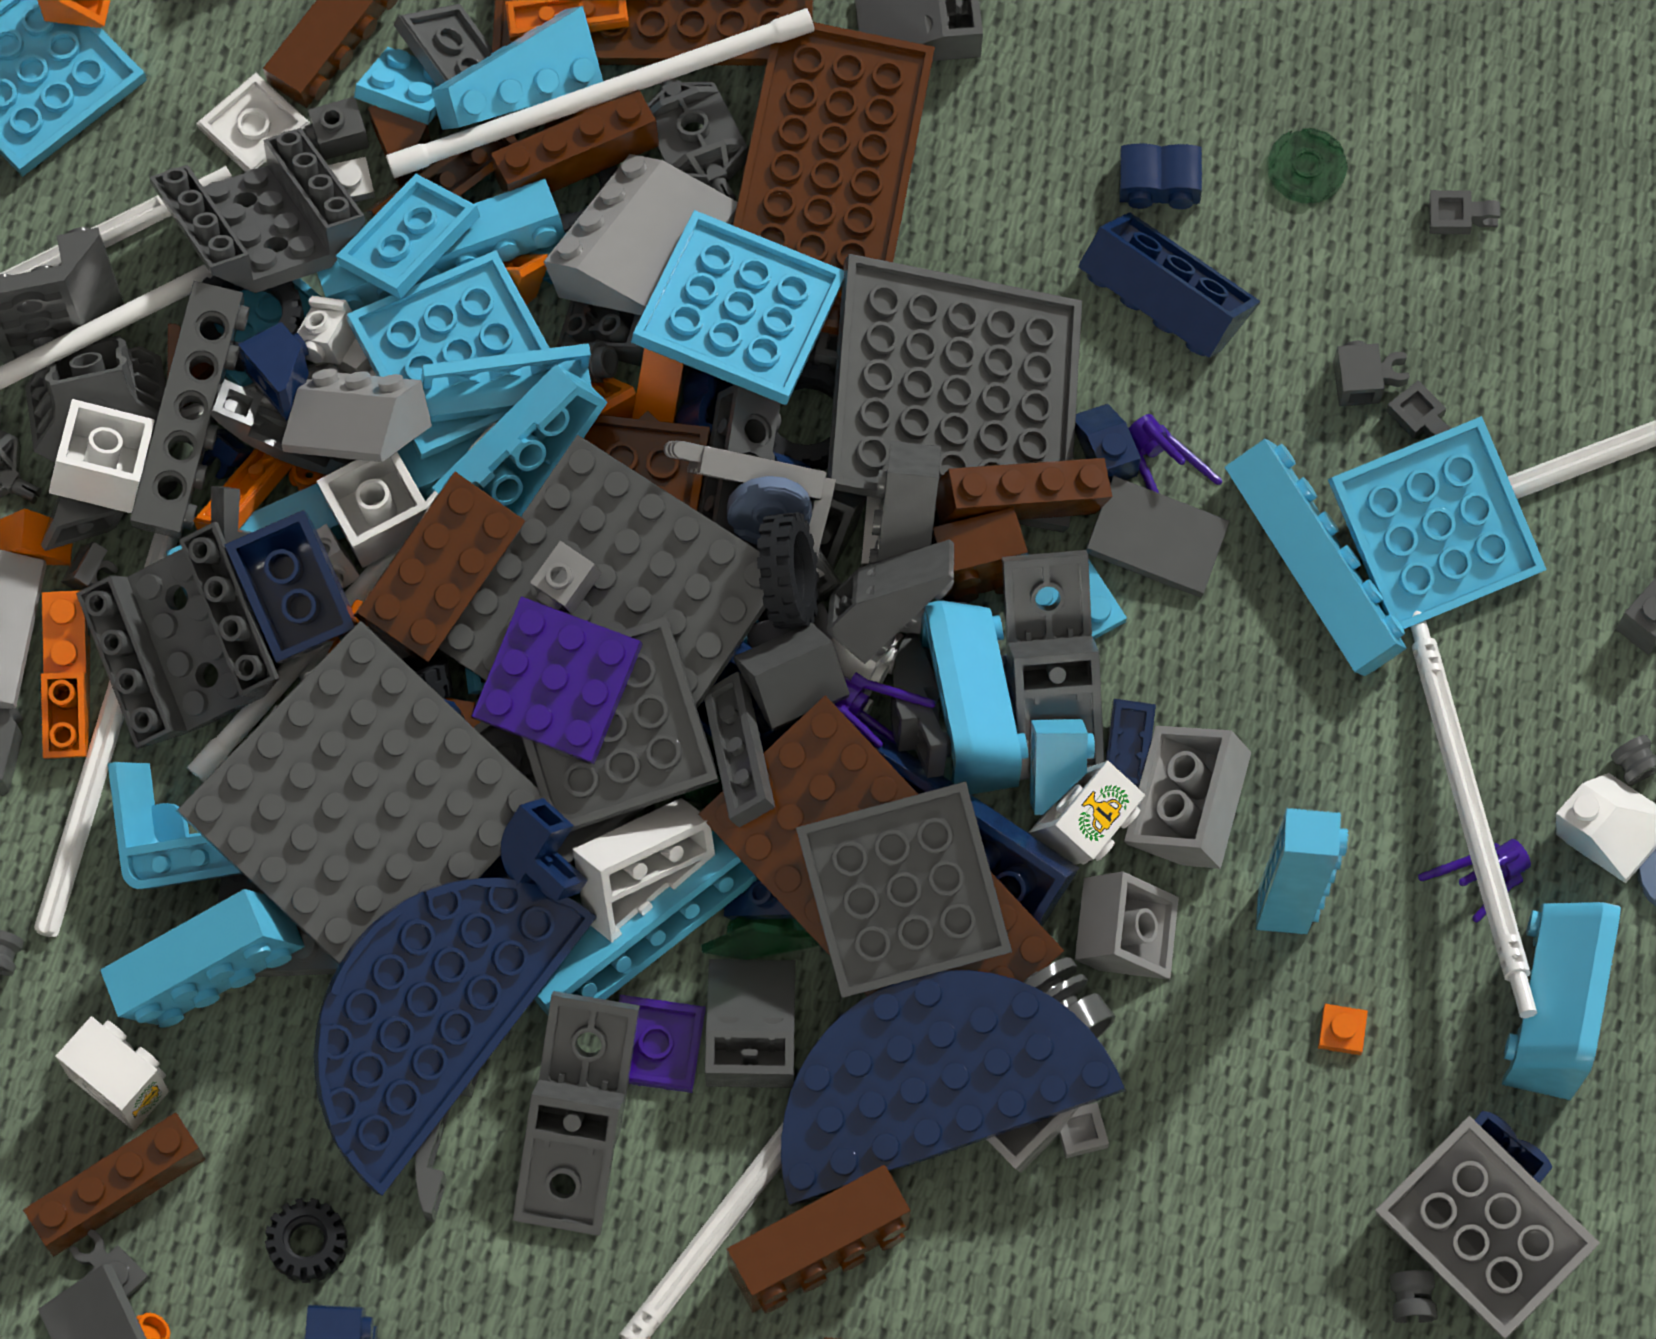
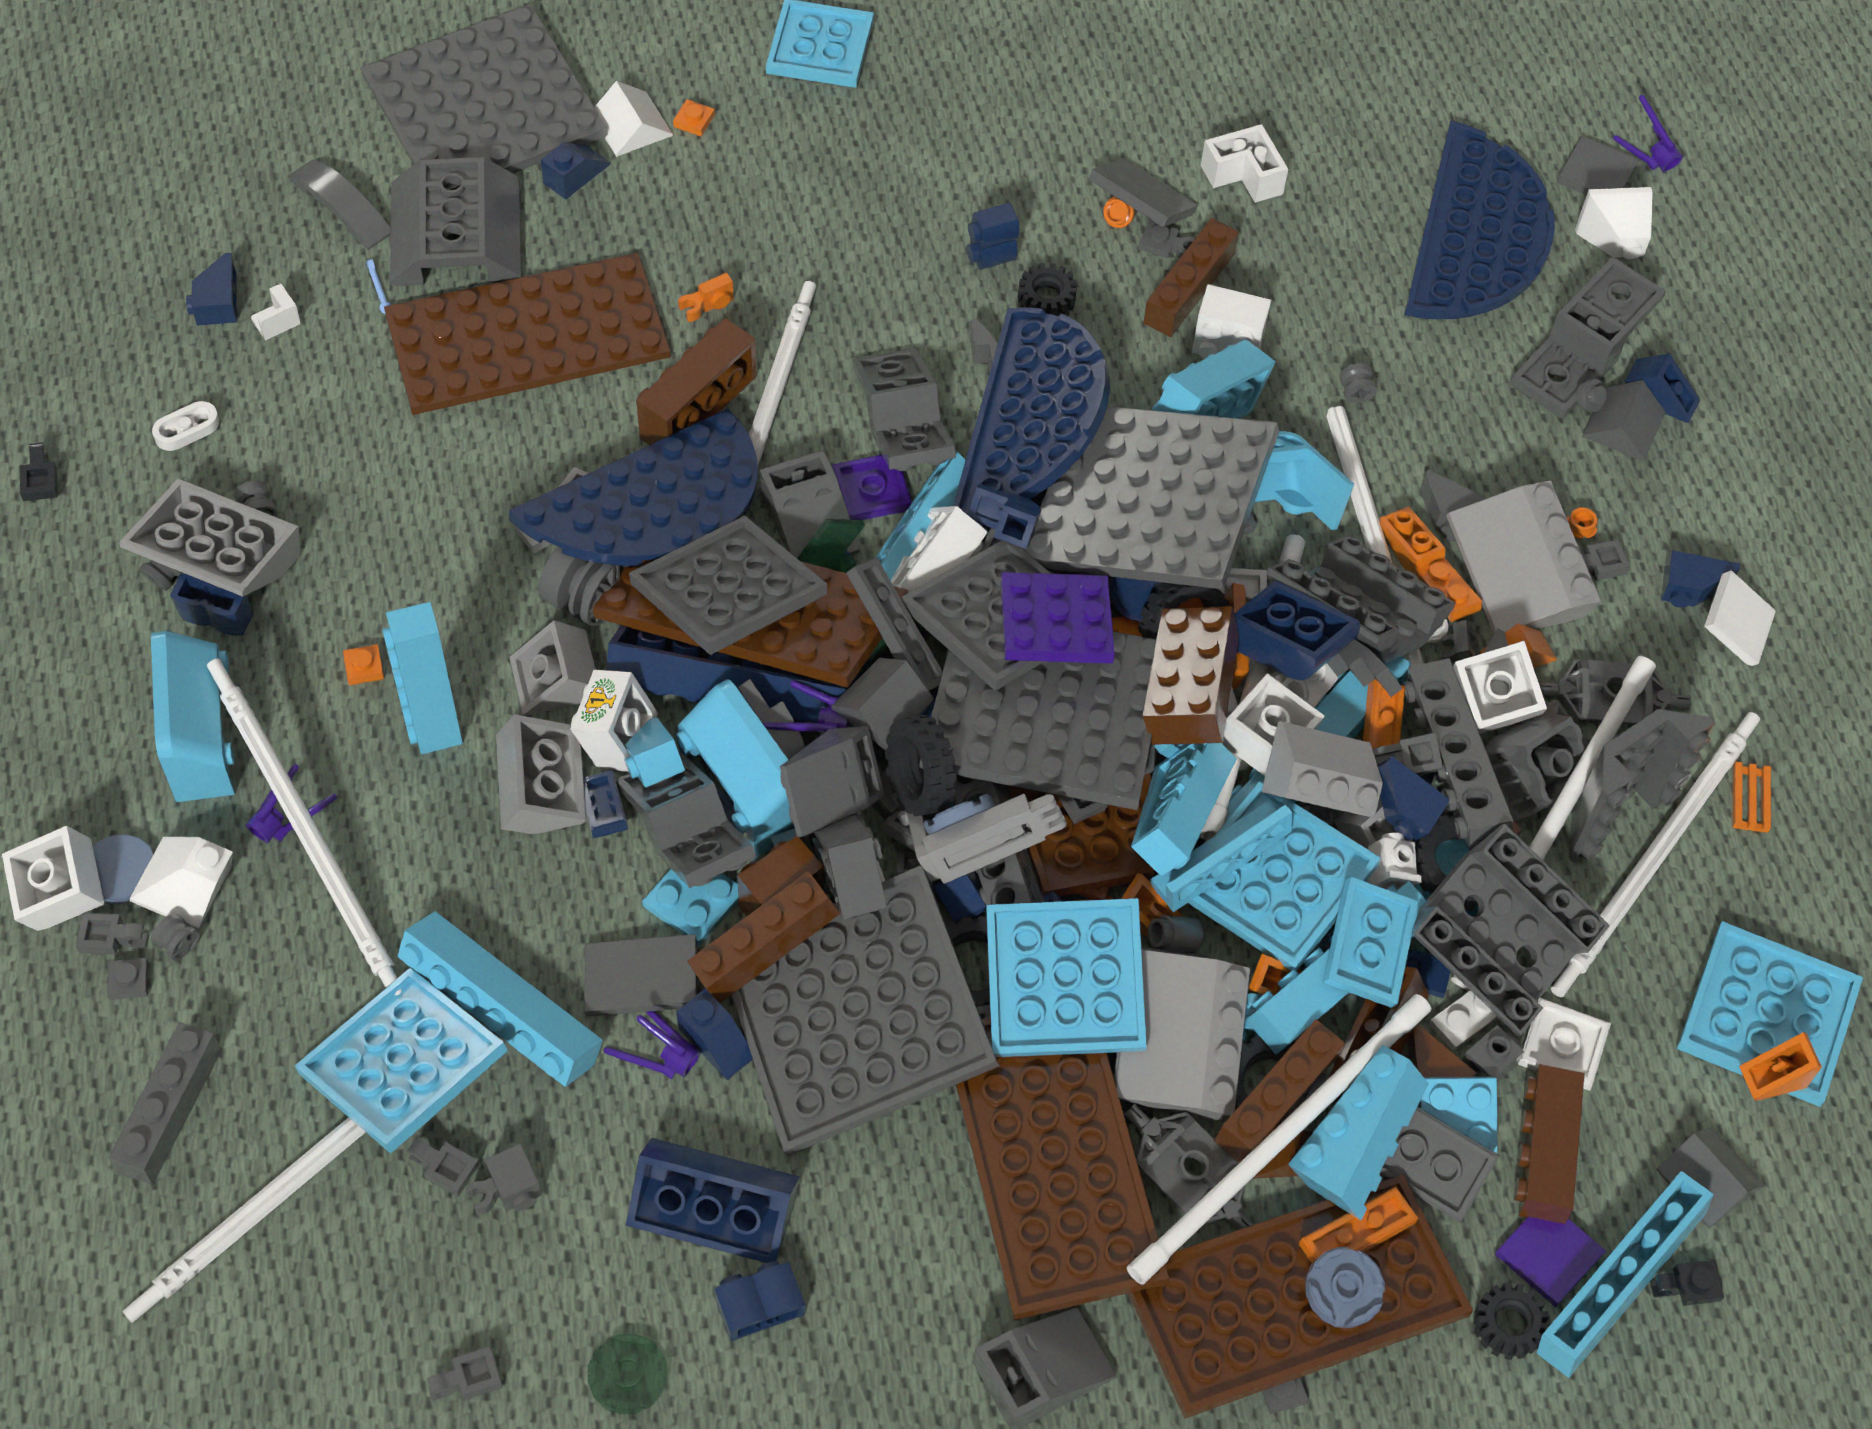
camera: 155 degrees right, 10 degrees down
(564, 579) = (1089, 687): light grey brick -> none

